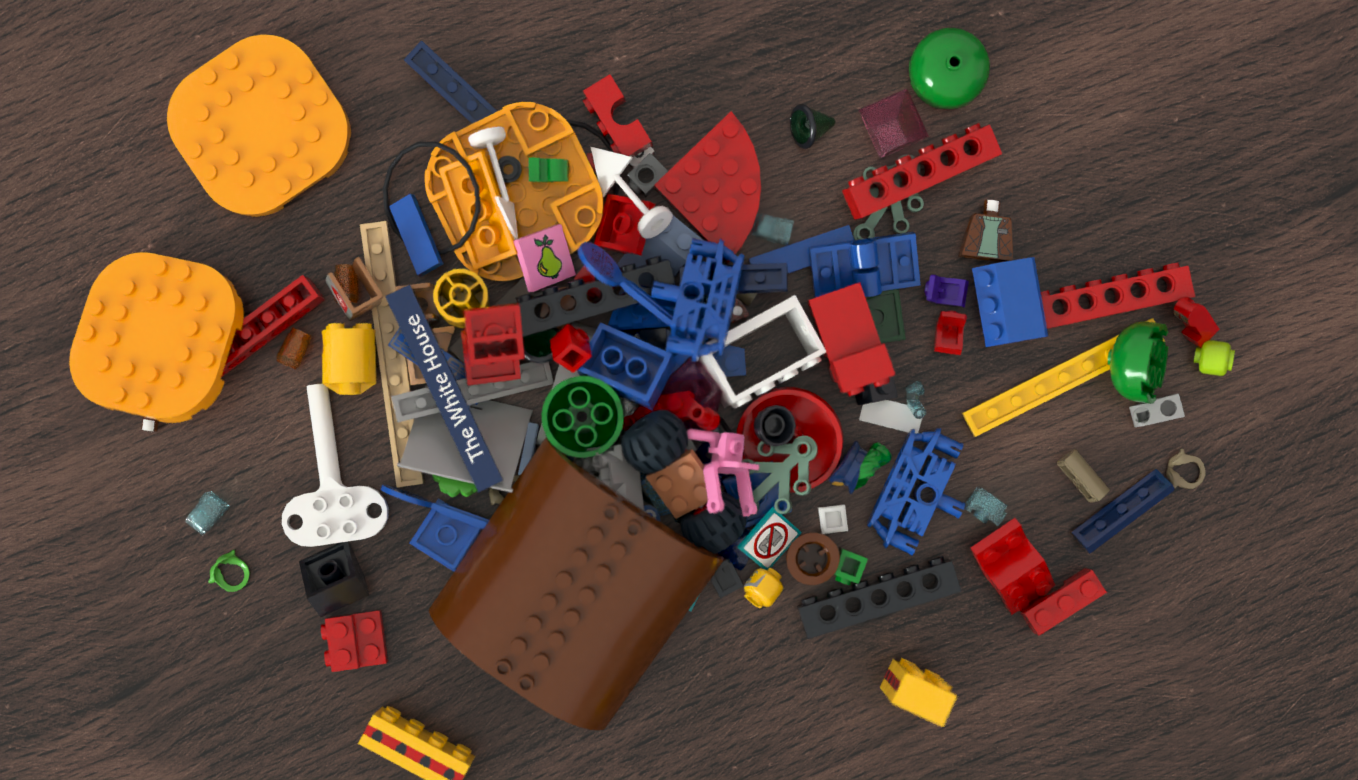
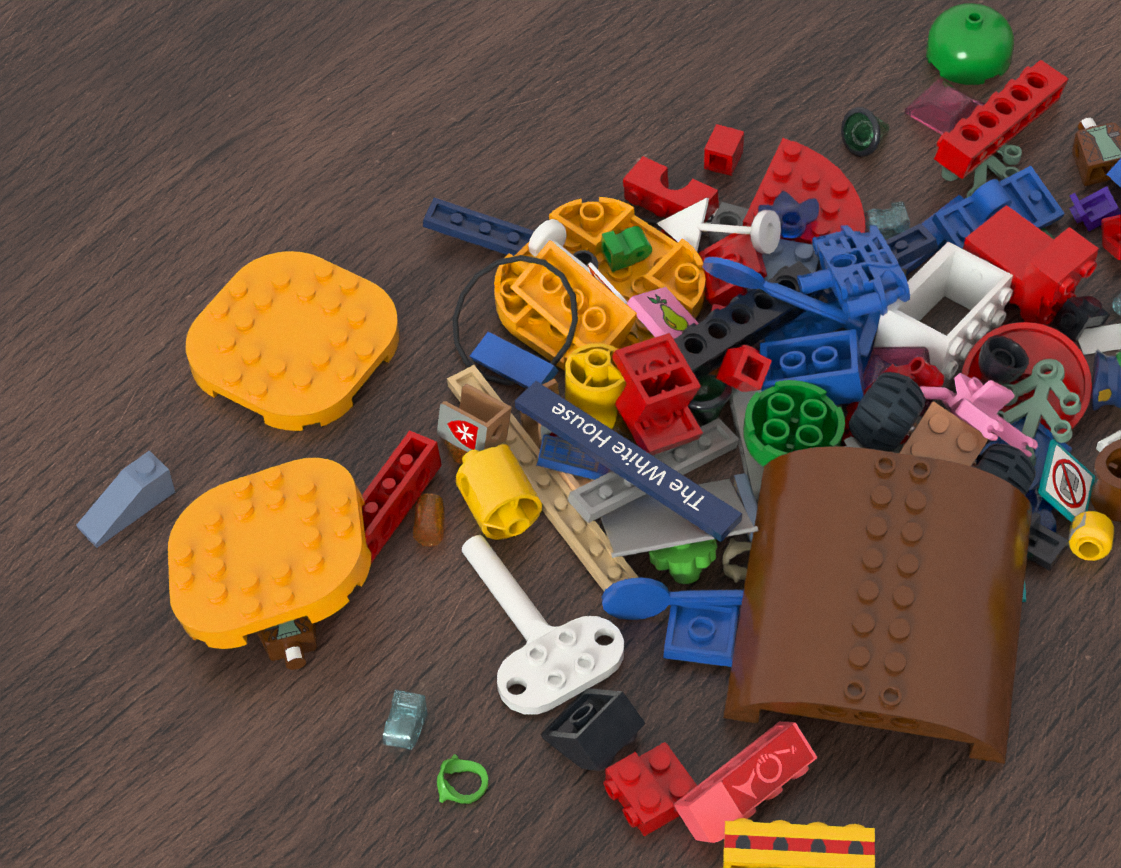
camera: 20 degrees left, 35 degrees down
(78, 225) = (127, 498): none -> sand blue slope
(413, 672) = (746, 781): none -> brick
(685, 88) = (723, 150): none -> red brick
(690, 199) = (793, 215): none -> clear blue plate

